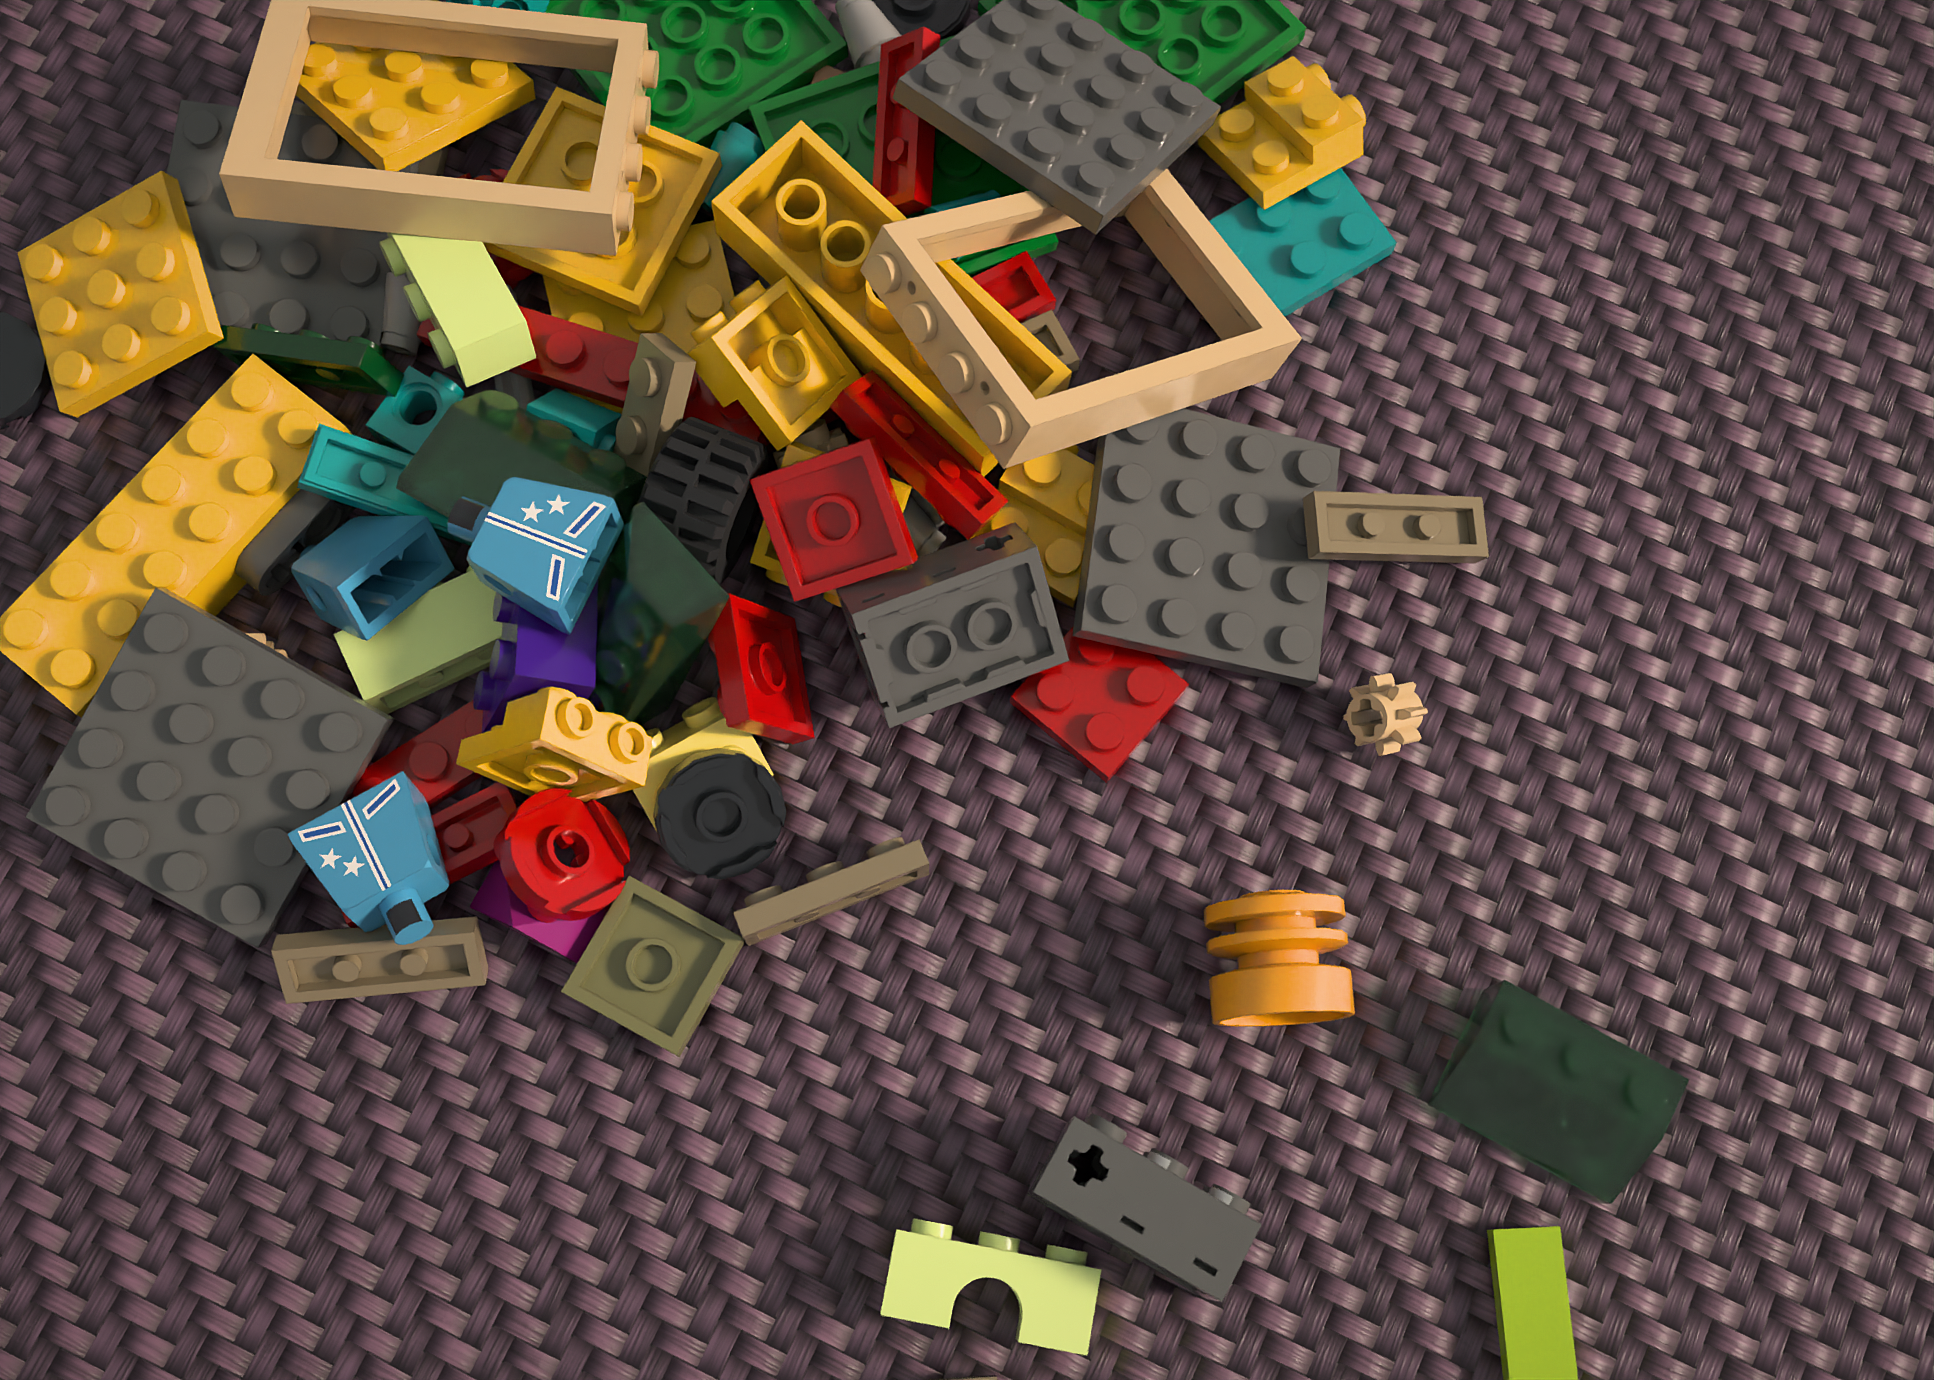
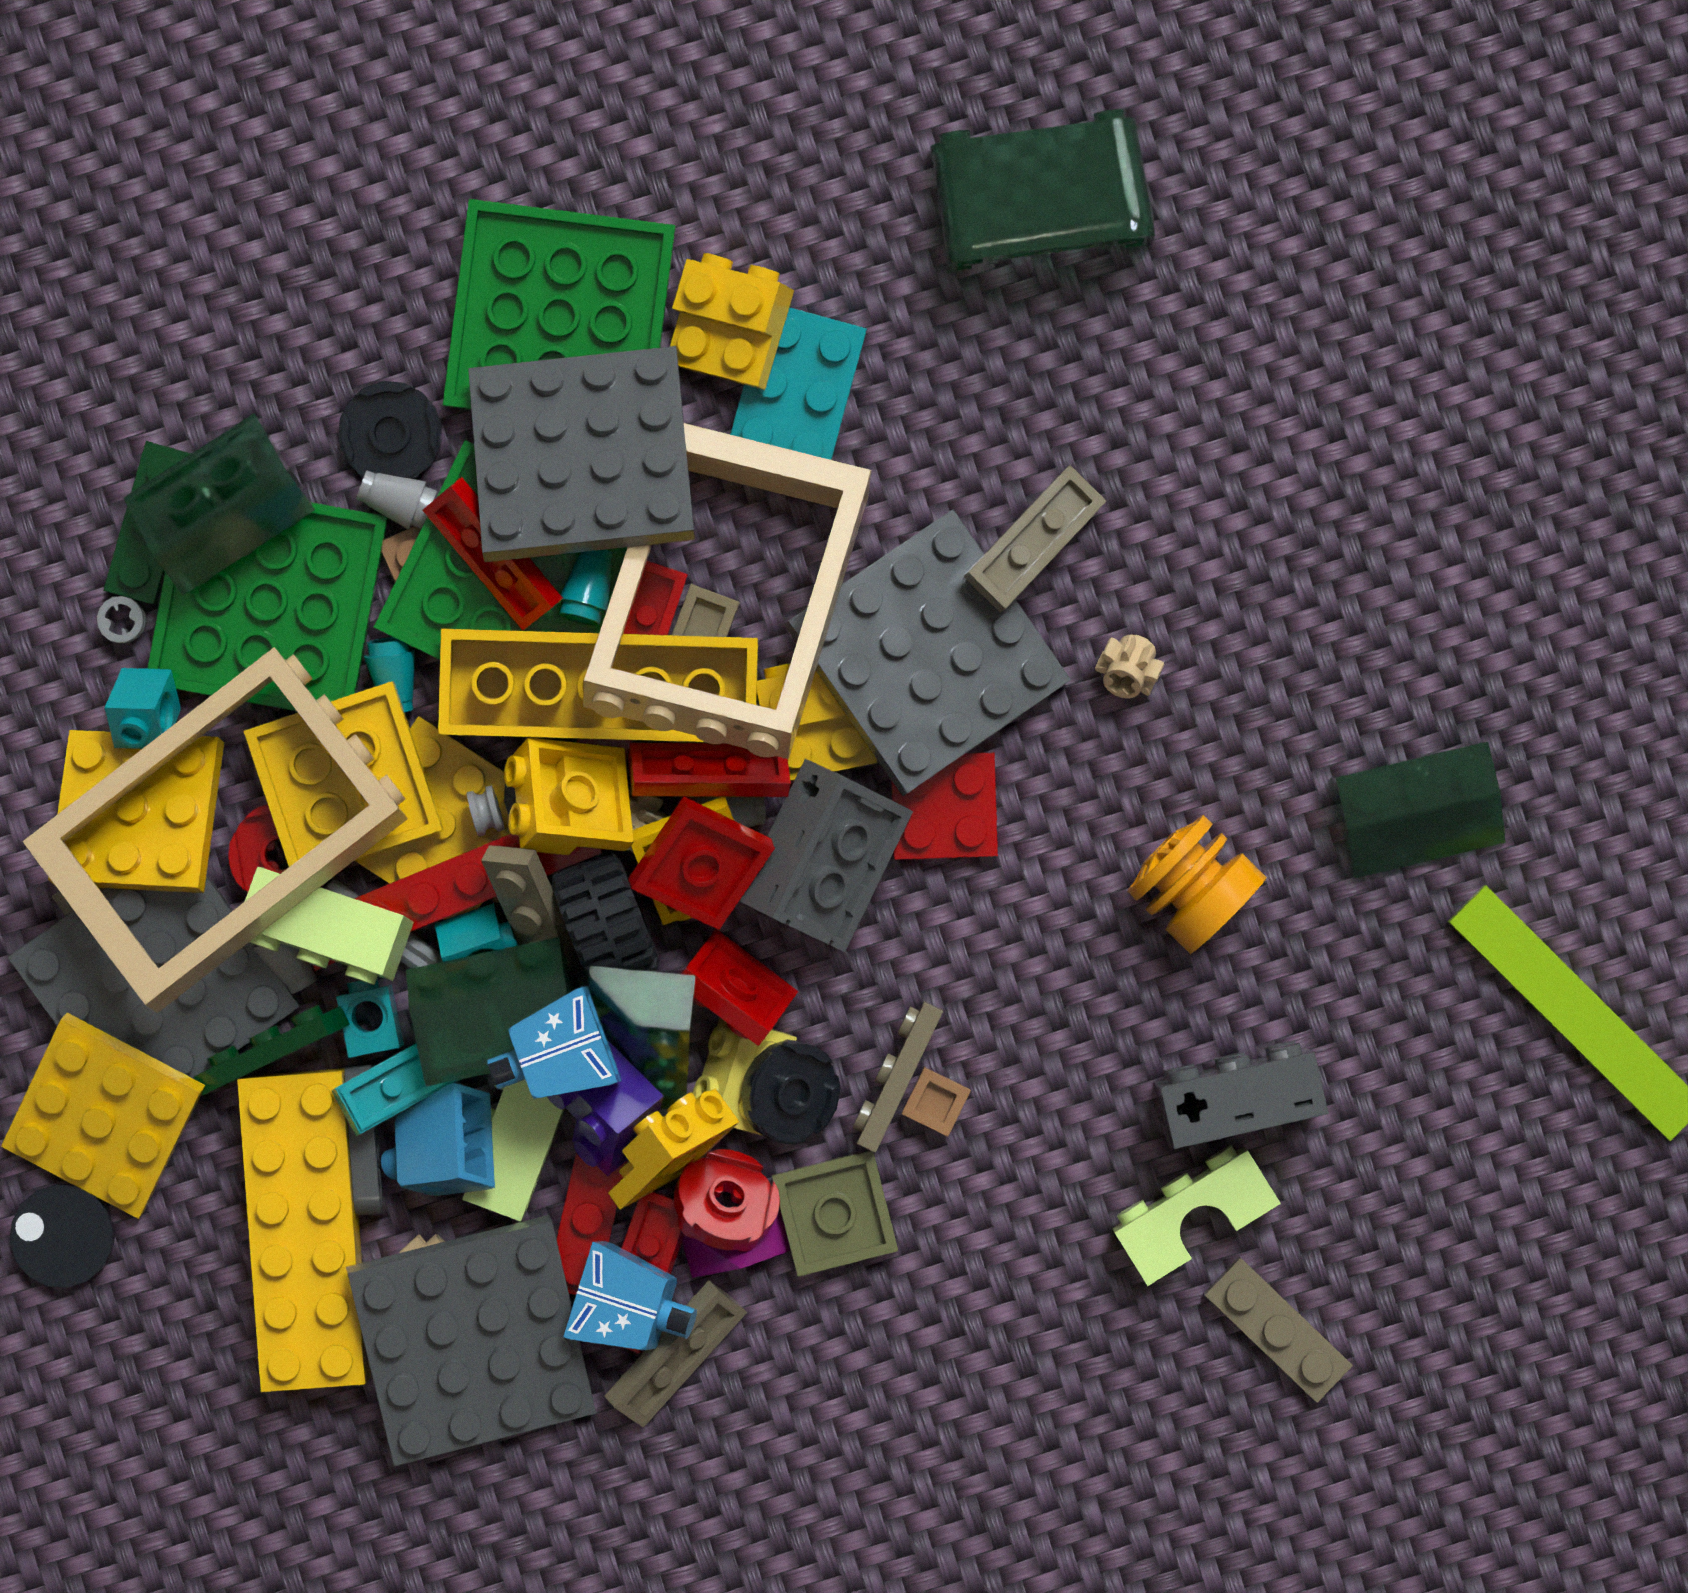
camera: 30 degrees left, 15 degrees up
(686, 319) = (485, 811): none -> light grey bush
(844, 948) = (936, 1101): none -> medium nougat plate
(1658, 254) = (1041, 191): none -> clear green windscreen

